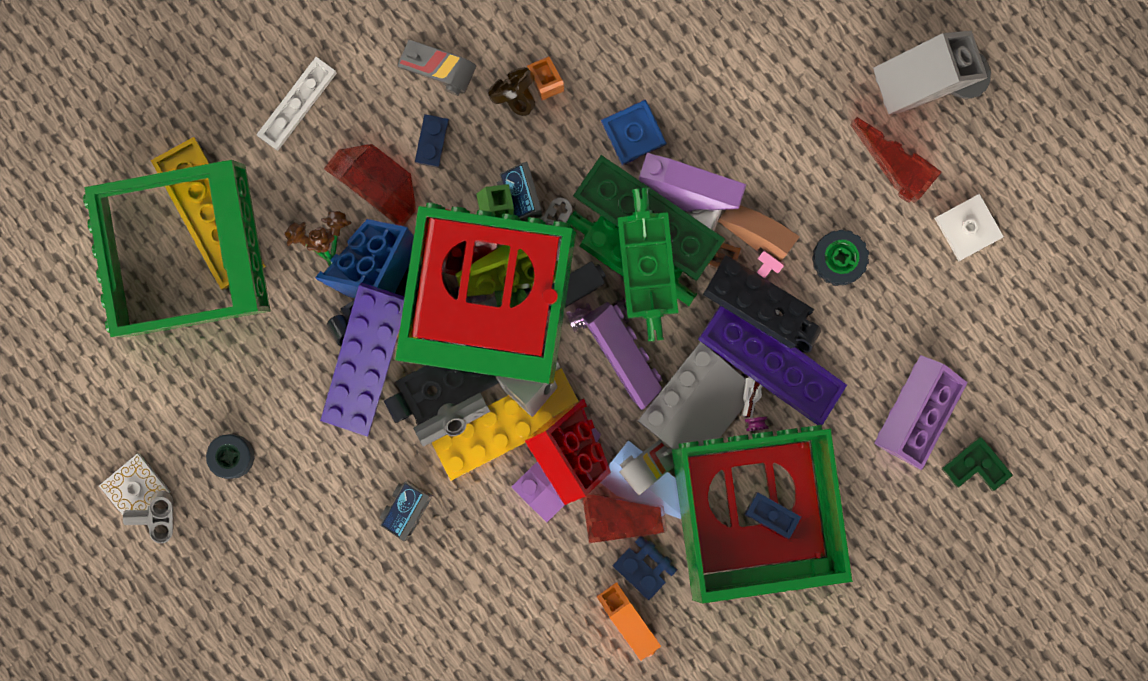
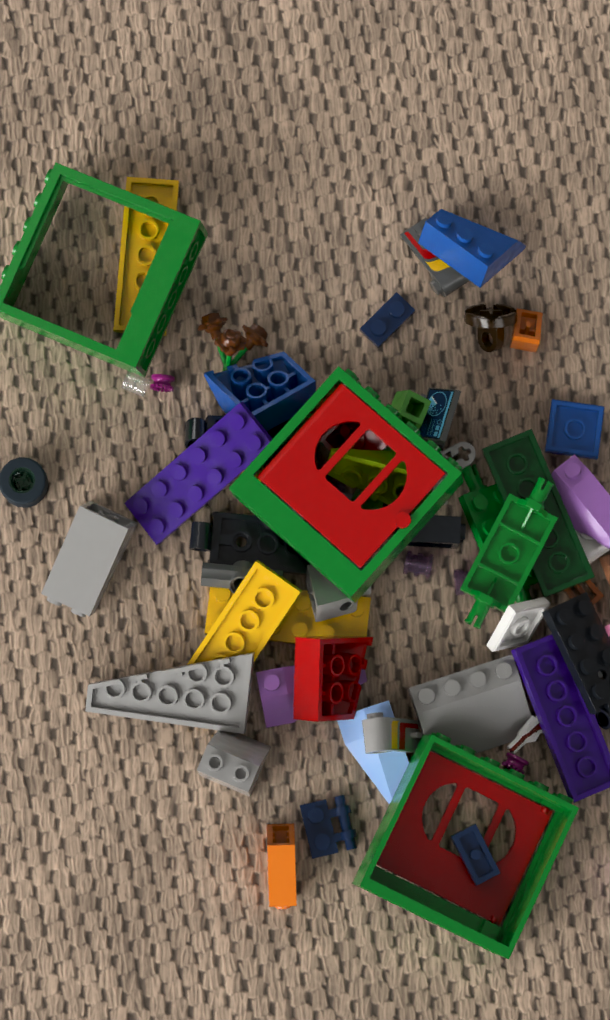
camera: 30 degrees right, 5 degrees down
(267, 320) = (136, 384): none -> clear hinge
(287, 305) = (162, 381): none -> magenta bush
(296, 103) = (288, 210): white plate -> none
(321, 482) = (88, 558): none -> light grey slope
(376, 181) = (314, 323): clear red wedge -> none
(405, 511) = (147, 632): slope -> none
(457, 41) = (468, 246): none -> blue wedge
(475, 535) = (193, 695): none -> light grey wing
(479, 473) = (249, 616): none -> yellow plate
(539, 567) = (233, 761): none -> light grey slope
(621, 518) = (335, 766): clear red wedge -> none
(623, 354) = (434, 620): medium lavender slope -> none
(690, 315) = (518, 624): none -> white plate

